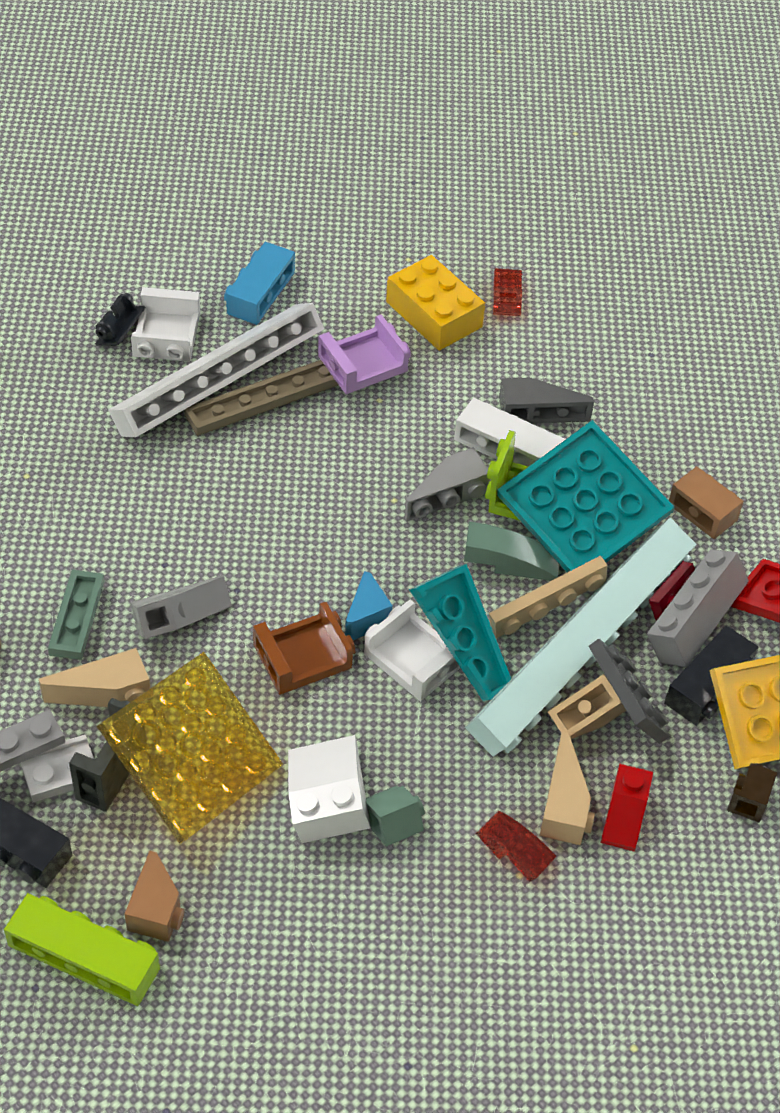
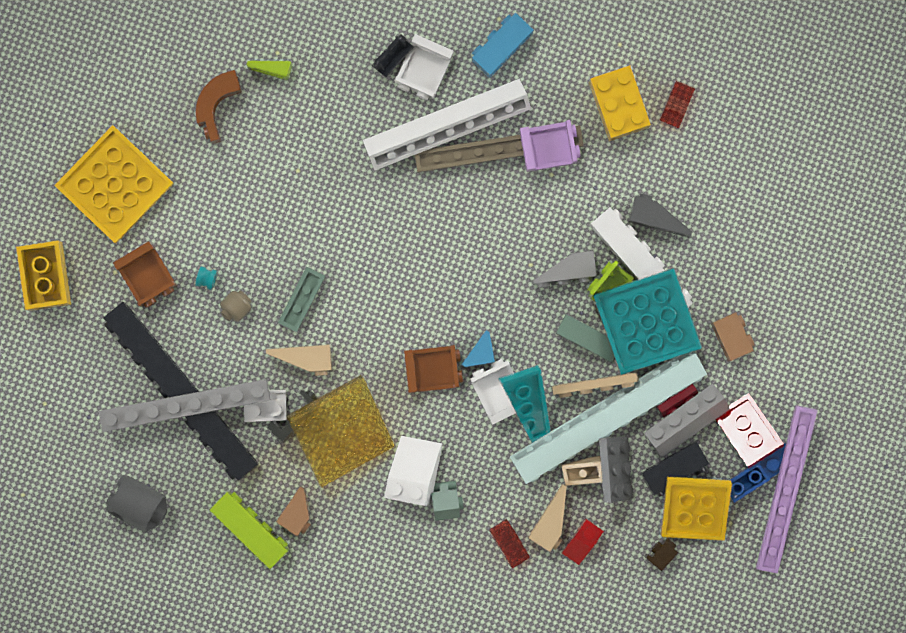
camera: 20 degrees right, 35 degrees up
(180, 607) = (360, 319): light grey slope -> none

